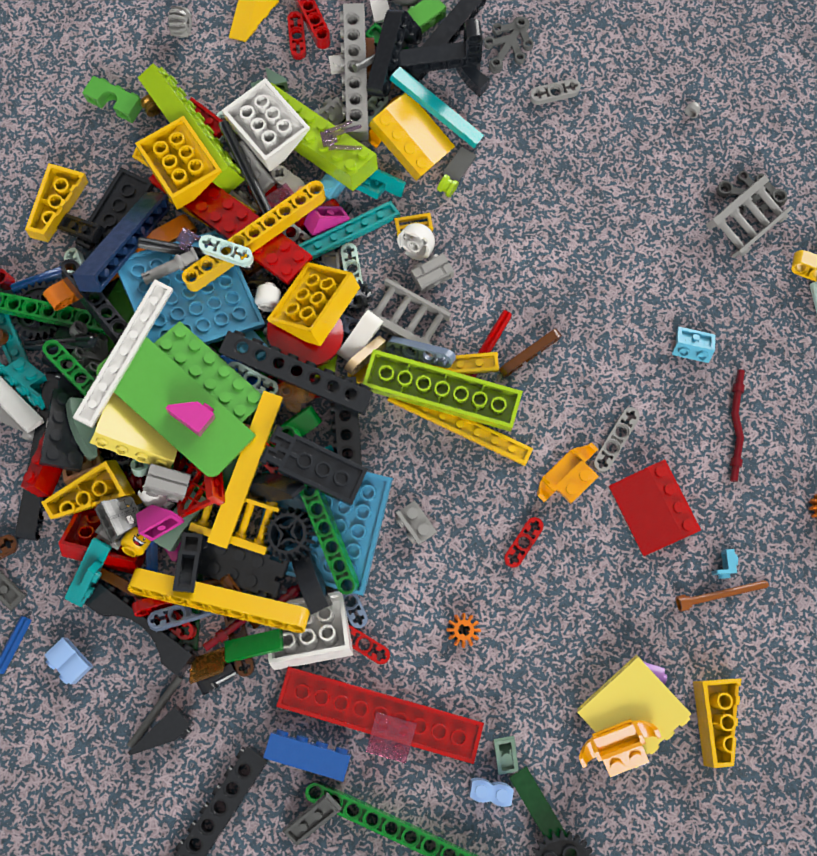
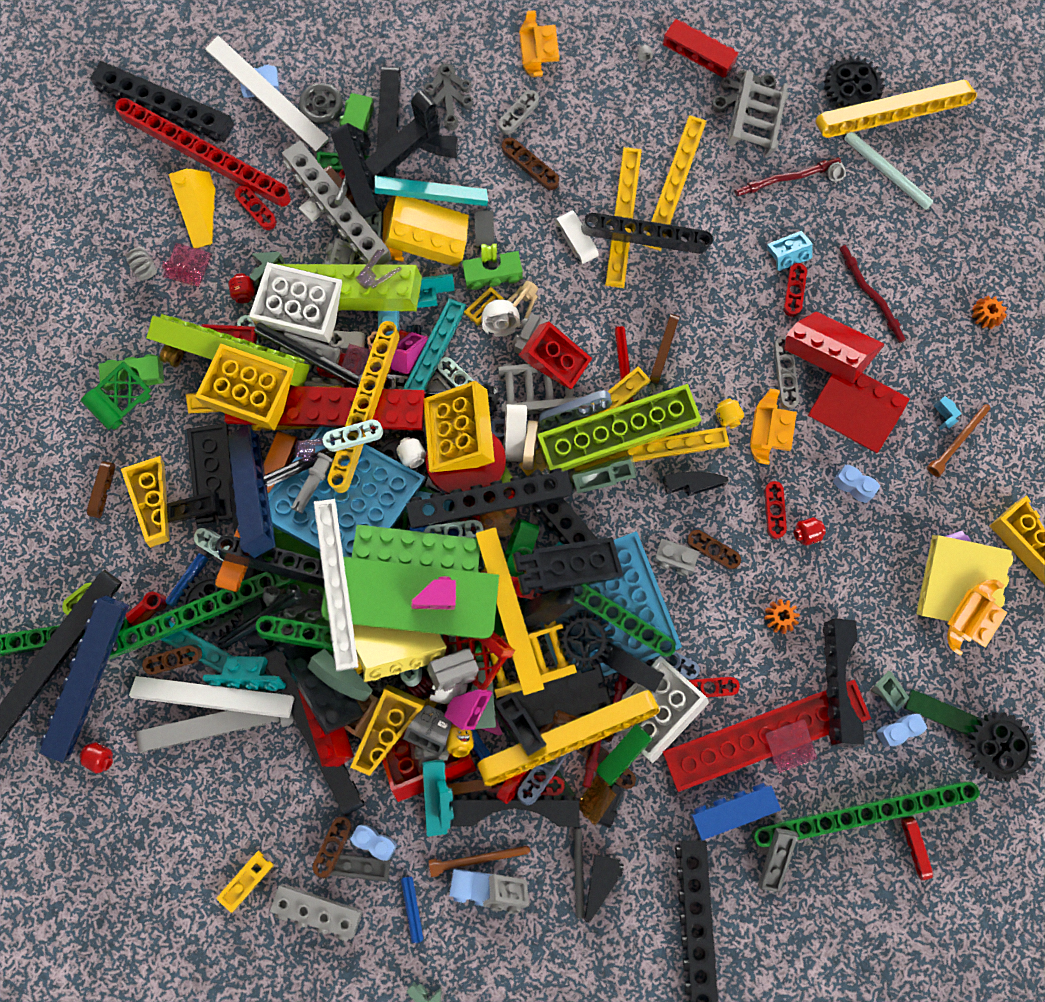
camera: 35 degrees left, 0 degrees up
(20, 568) = (368, 838): none -> light blue brick
(34, 163) = (102, 483): none -> reddish brown beam
(53, 626) = (437, 866): none -> dark orange piece
(74, 111) = (105, 408): none -> green piece
(86, 685) = (507, 894): none -> light grey bracket
(214, 45) = (186, 265): none -> clear pink hinge
(238, 86) = (241, 288): none -> red head
(408, 419) = (605, 474): none -> sand green slope
(435, 298) = (555, 355): none -> red slope
(445, 753) = (845, 725): none -> black arch
(451, 209) = (477, 275): none -> bright green arch
(454, 235) = (525, 292): none -> tan plant
(461, 550) = (724, 562): none -> reddish brown beam
(474, 474) = (693, 482): none -> black slope
(526, 219) = (580, 244): none -> white beam
(533, 138) = (532, 162): none -> reddish brown beam
(537, 579) = (809, 531): none -> red head
(544, 440) = (729, 413): none -> yellow head
(576, 228) = (624, 208): none -> yellow tile
(581, 242) = (655, 229): none -> black beam
(603, 562) = (860, 486): none -> light blue brick
(609, 48) = (537, 45): none -> light orange plate
(639, 228) = (678, 172): none -> yellow tile
(668, 443) = (832, 346): none -> red slope
(669, 391) = (800, 283): none -> red beam
(741, 134) = (700, 48): none -> red brick
(772, 294) = (754, 186): none -> dark red bar
(781, 306) = (836, 172): none -> light grey plate

